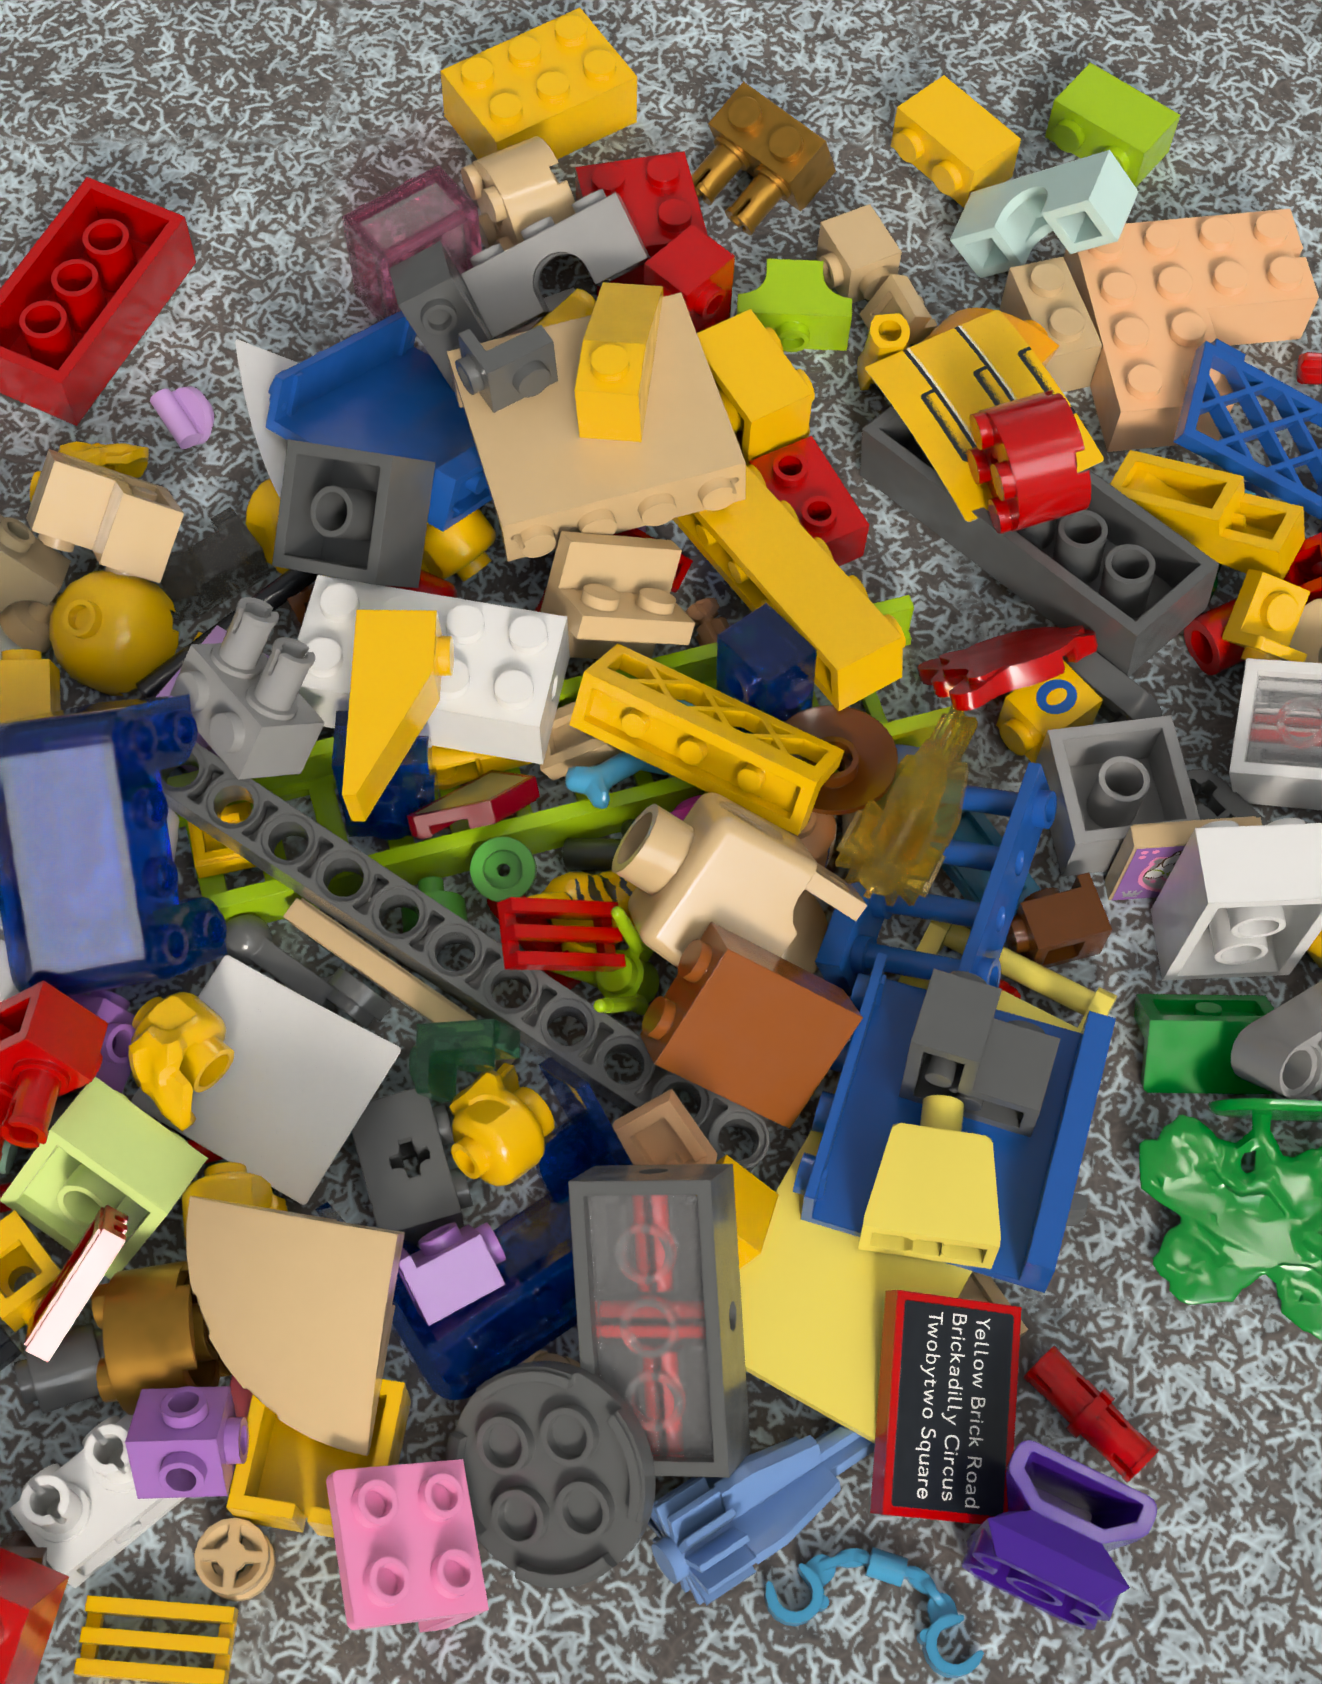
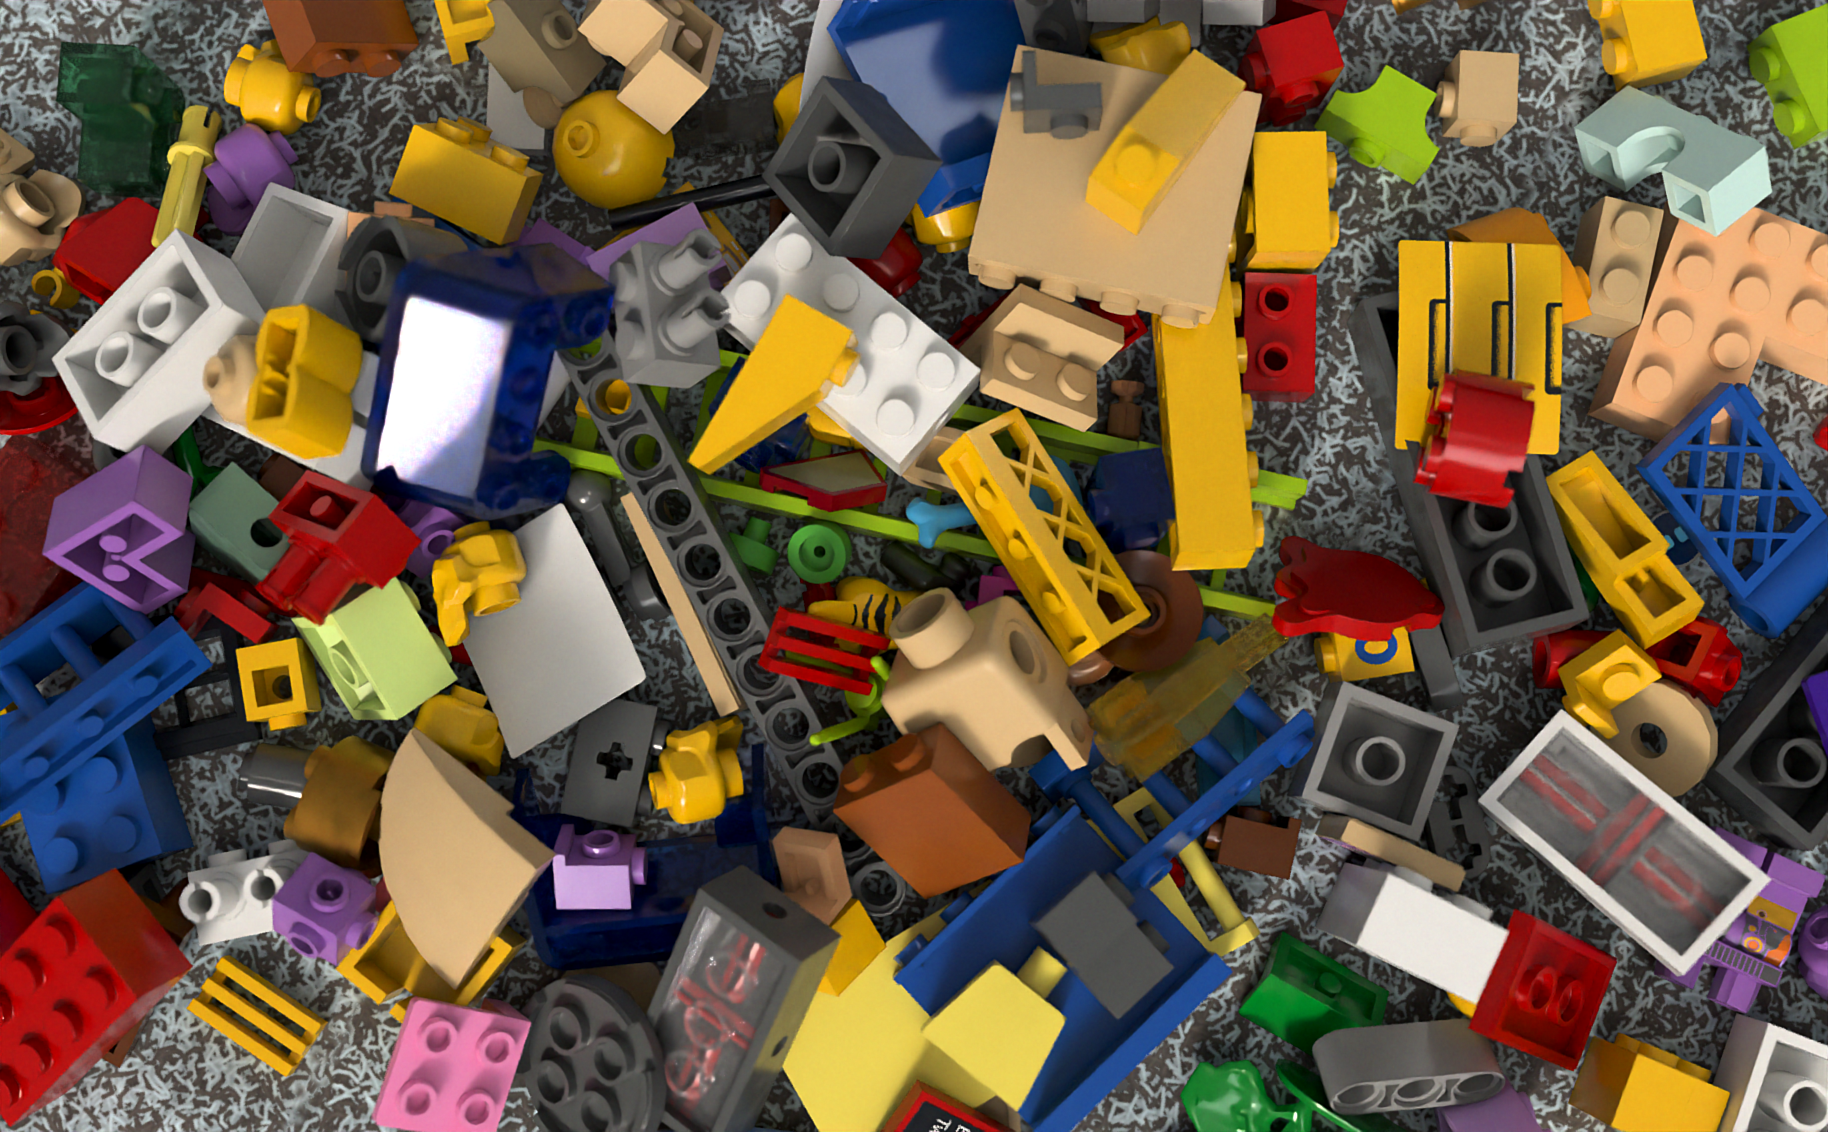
camera: 30 degrees right, 20 degrees up
(76, 1282) = (307, 732): tile -> none
(222, 1555) = (326, 997): tan wheel -> none
(458, 1046) = (693, 700): clear green bracket -> none
(885, 337) = (1435, 219): yellow bar -> none
(899, 296) = (1476, 180): tan tile -> none

